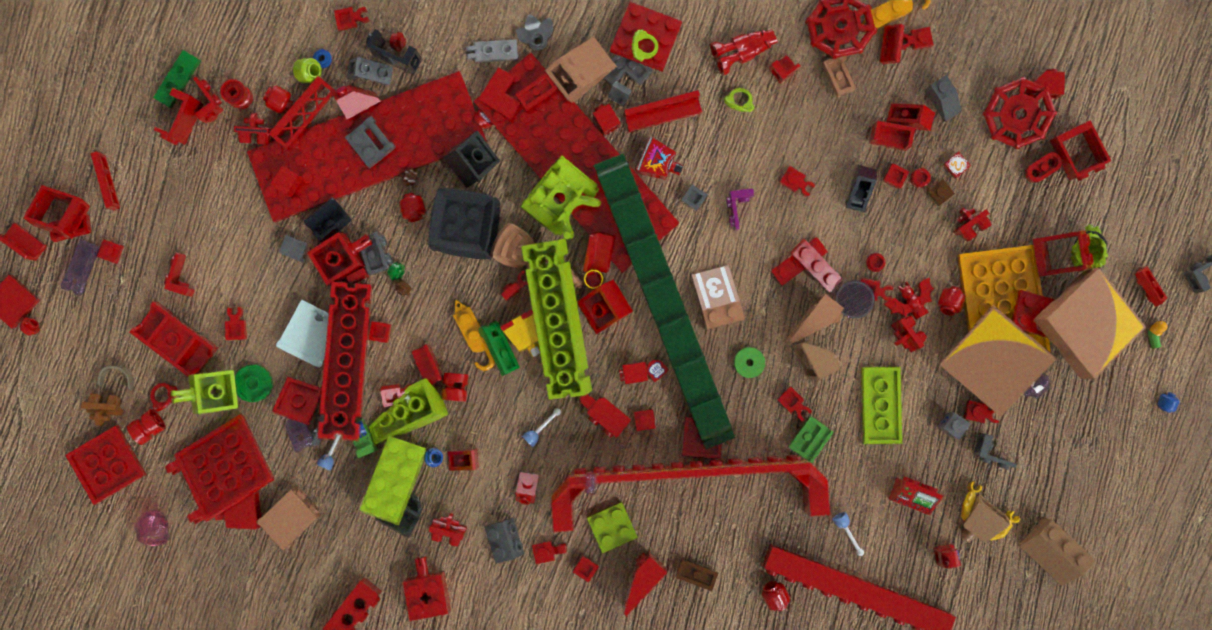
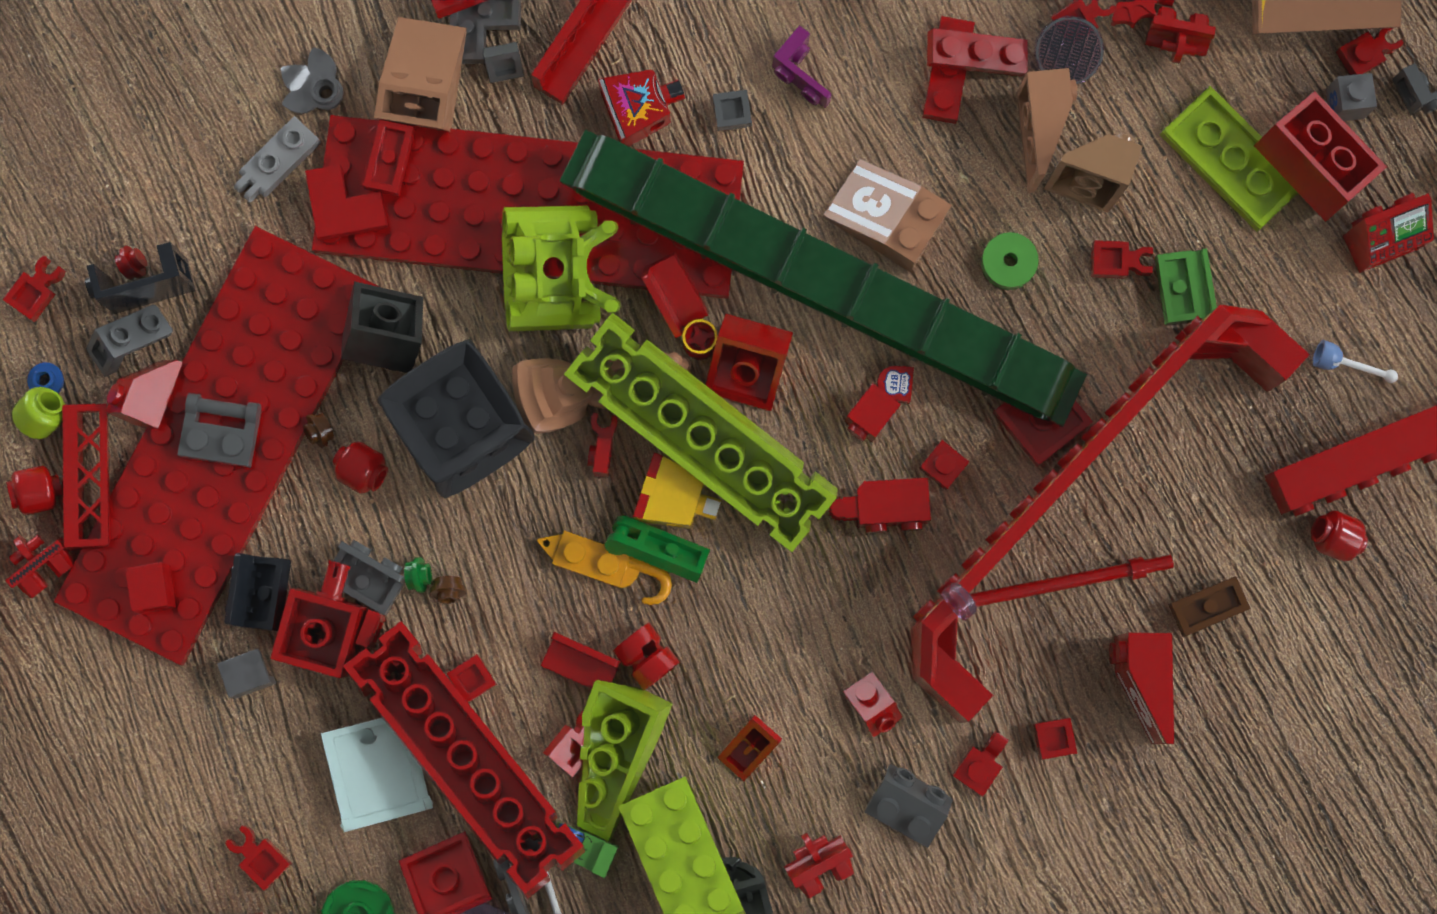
camera: 50 degrees left, 5 degrees down
(171, 280) = (107, 876): red bracket -> none
(438, 457) = (710, 775): blue plate -> none
(482, 120) = (348, 263): red tile -> none
(532, 436) = (815, 628): hinge -> none
(606, 119) = (516, 111): red brick -> none
(612, 527) = (1036, 650): lime plate -> none
(682, 532) = (1134, 568): none -> red bar
(916, 438) = (1320, 156): none -> red brick

